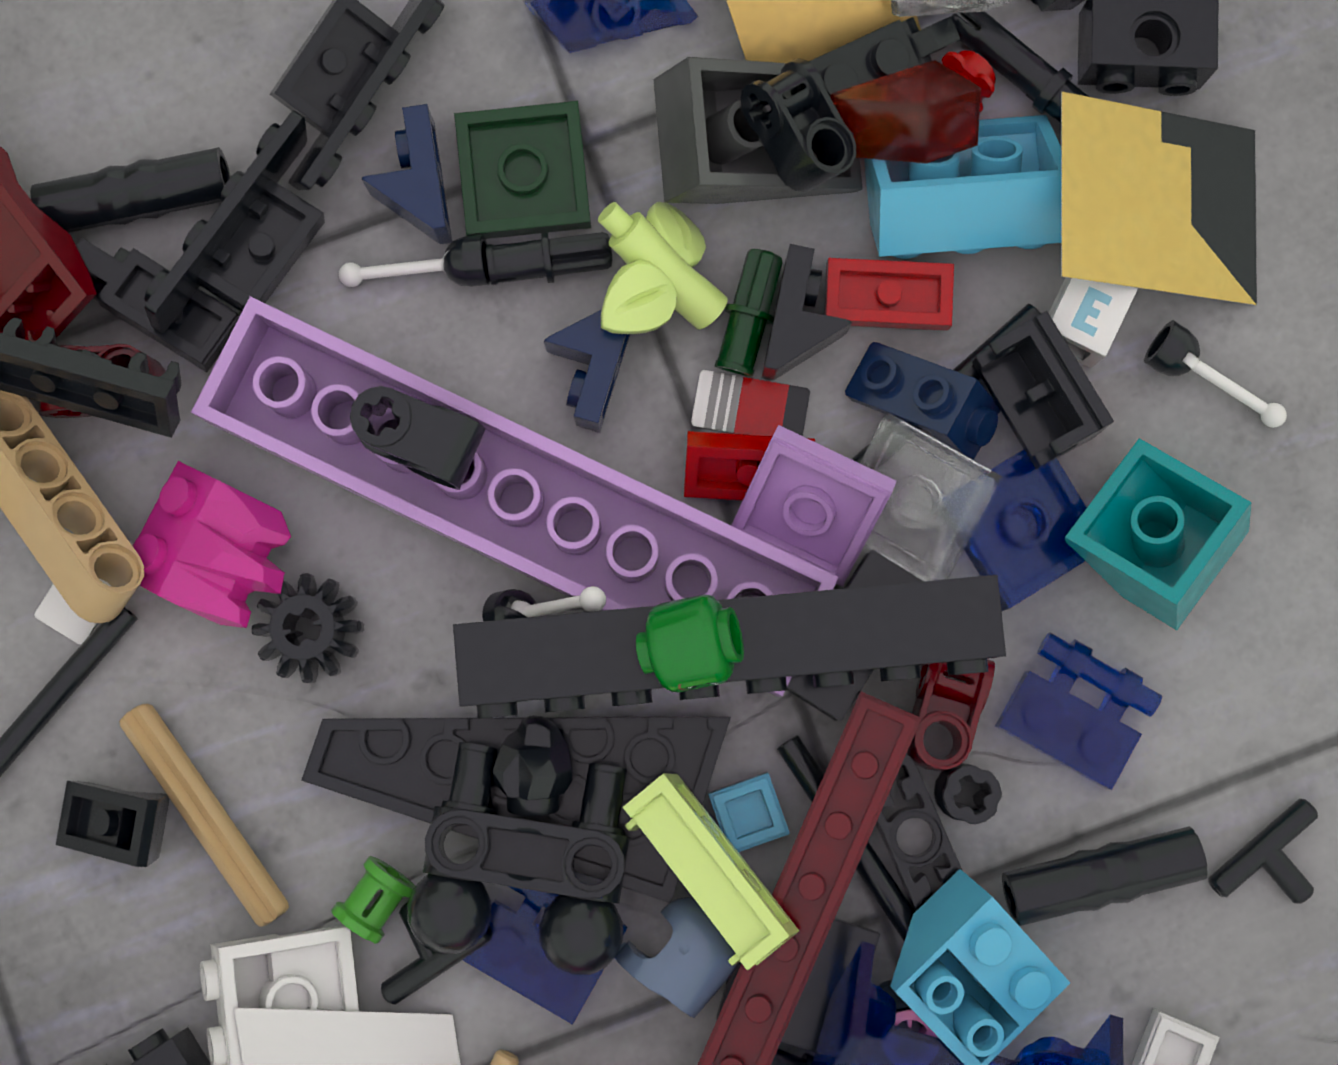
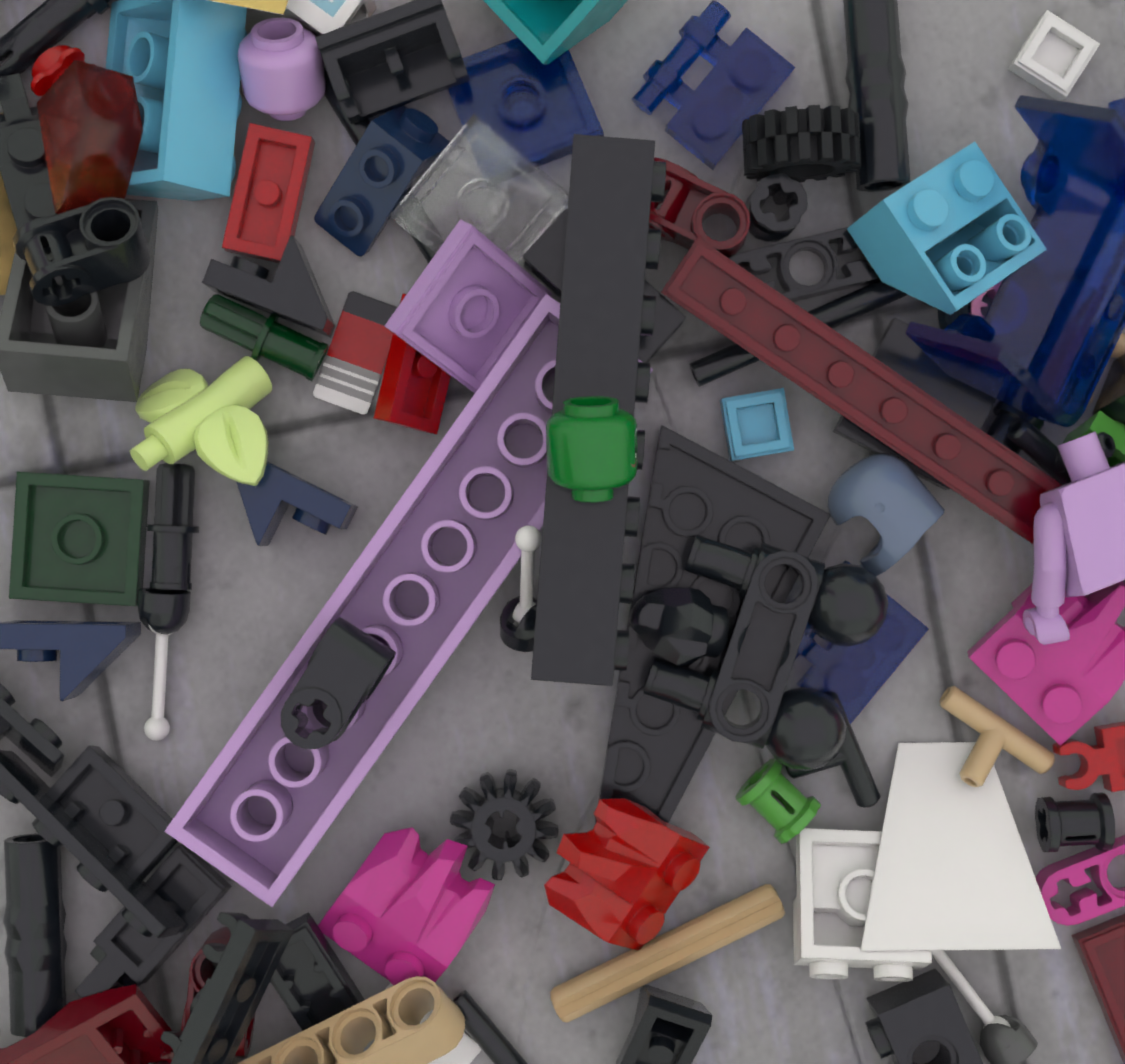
camera: 75 degrees left, 5 degrees up
(129, 465) = (312, 976): none -> black plate
(277, 755) = (624, 873): none -> red plate
(710, 869) = (809, 468): yellowish green container -> none
(1011, 285) = (281, 68): none -> lavender head
(1035, 808) = (802, 143): none -> black tyre

